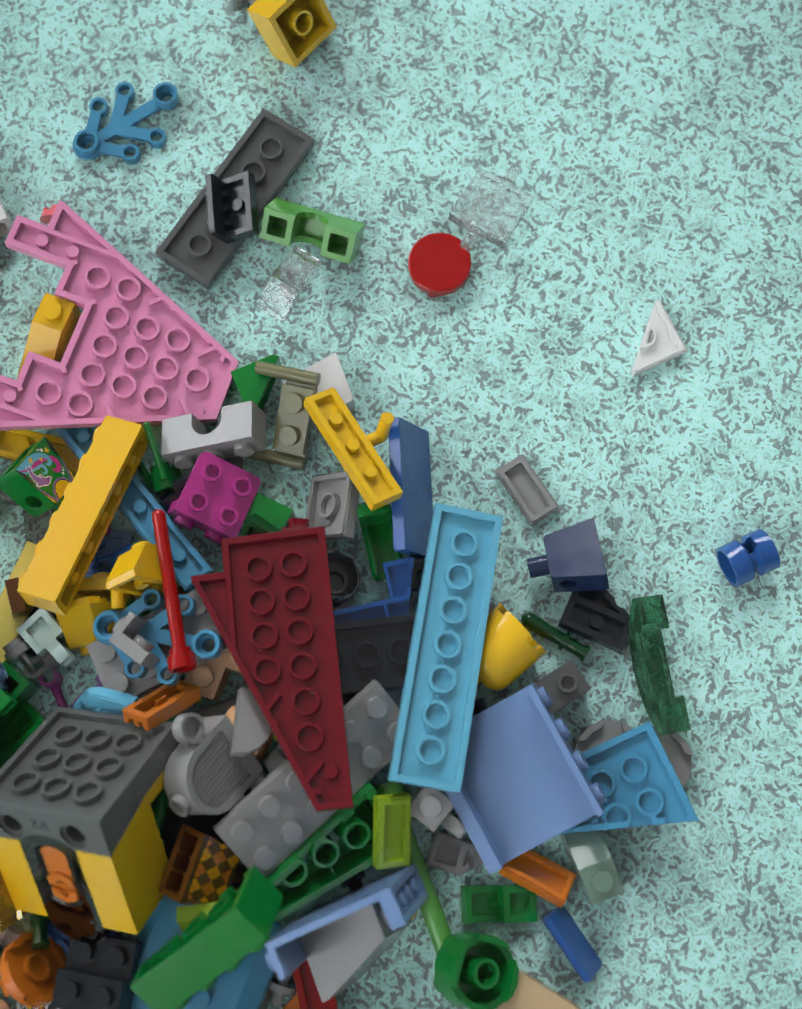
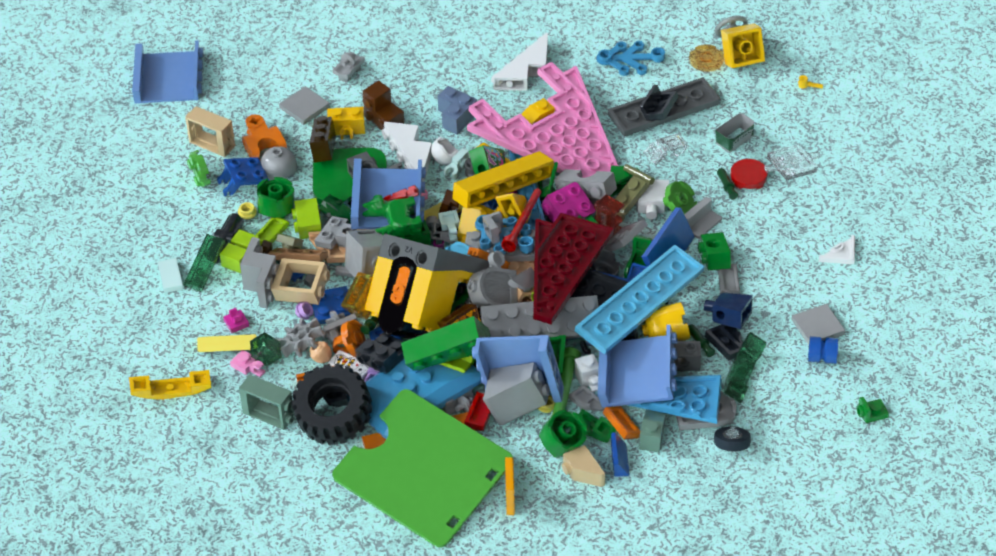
camera: 30 degrees right, 30 degrees down
(240, 71) = (706, 58): none -> clear orange tile
(286, 480) = (606, 209): none -> clear red window
(292, 223) = (693, 131): bright green arch -> none
(355, 448) = (649, 209): yellow plate -> none
(360, 370) = (674, 192): none -> bright green plate
(381, 169) = (738, 121): none -> light grey piece
(391, 830) = (565, 354): lime tile -> none
(420, 34) = (804, 83): none -> yellow hand
(422, 304) = (728, 186): none -> dark green piece
(422, 394) = (702, 218): none -> light grey panel
(477, 438) = (715, 251): none -> green brick
(705, 504) = (818, 323): none -> light grey tile
(721, 811) = (732, 438): none -> black wheel

